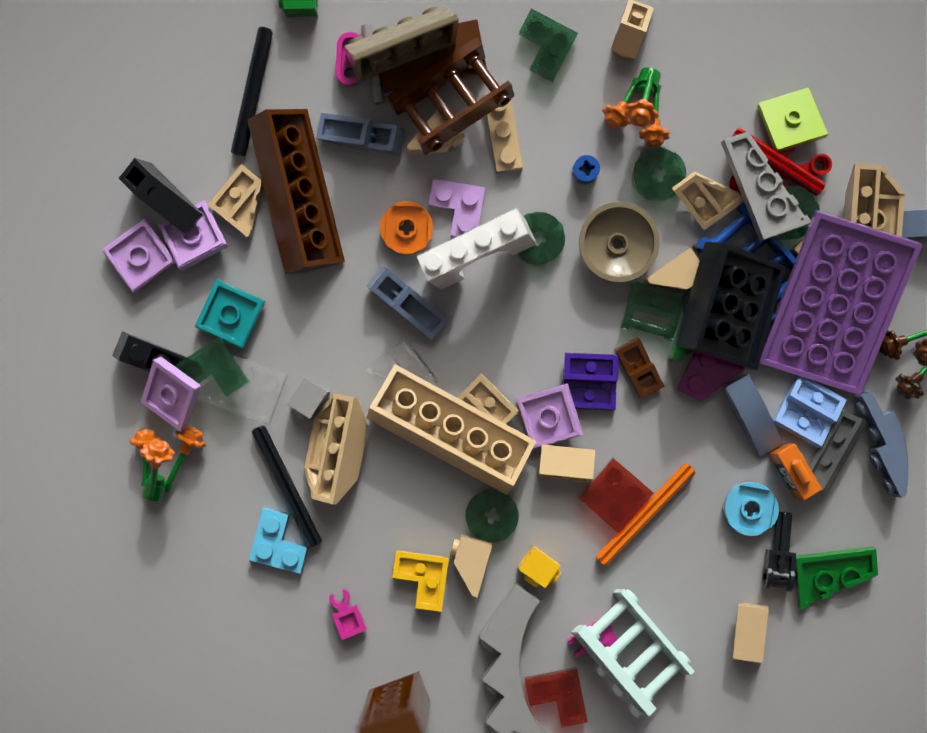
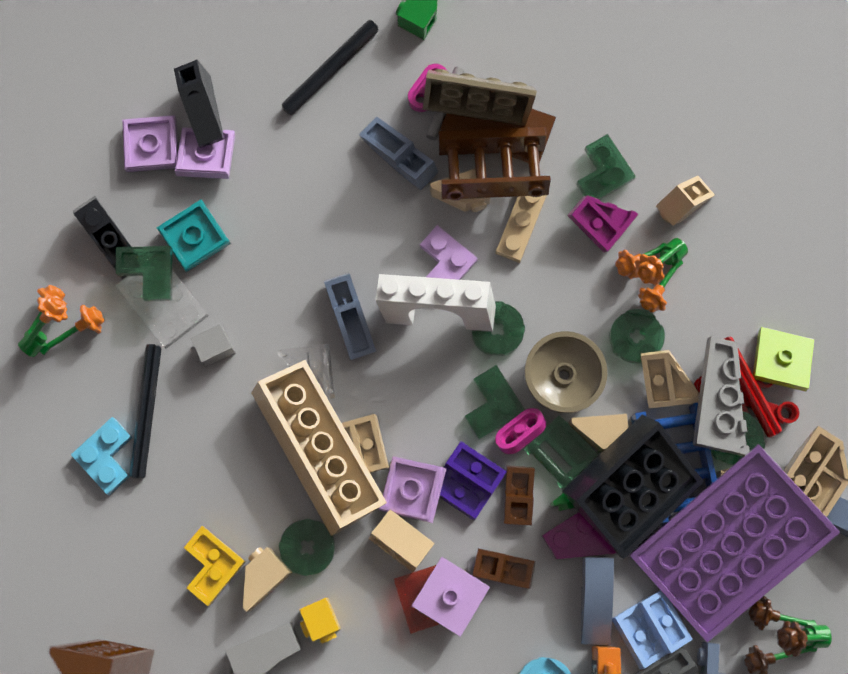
camera: 35 degrees right, 10 degrees down
(170, 394) = (98, 269): lavender plate -> none
(239, 200) = (262, 147): tan wing -> none
(295, 190) = (314, 167): reddish brown slope -> none
(335, 448) = (208, 402): tan wedge -> none
(348, 618) = (122, 561): dark pink plate -> none
(396, 217) = (387, 238): orange plate -> none
(571, 91) = (601, 221): none -> magenta wing
(580, 304) = (500, 403): none -> clear green plate
(585, 174) = (573, 300): blue wheel -> none
(609, 314) = (520, 431): none -> dark pink plate
(634, 484) = (450, 596): none -> lavender plate
(646, 514) = (441, 633): orange axle -> none
(662, 435) = (504, 568): none -> reddish brown slope

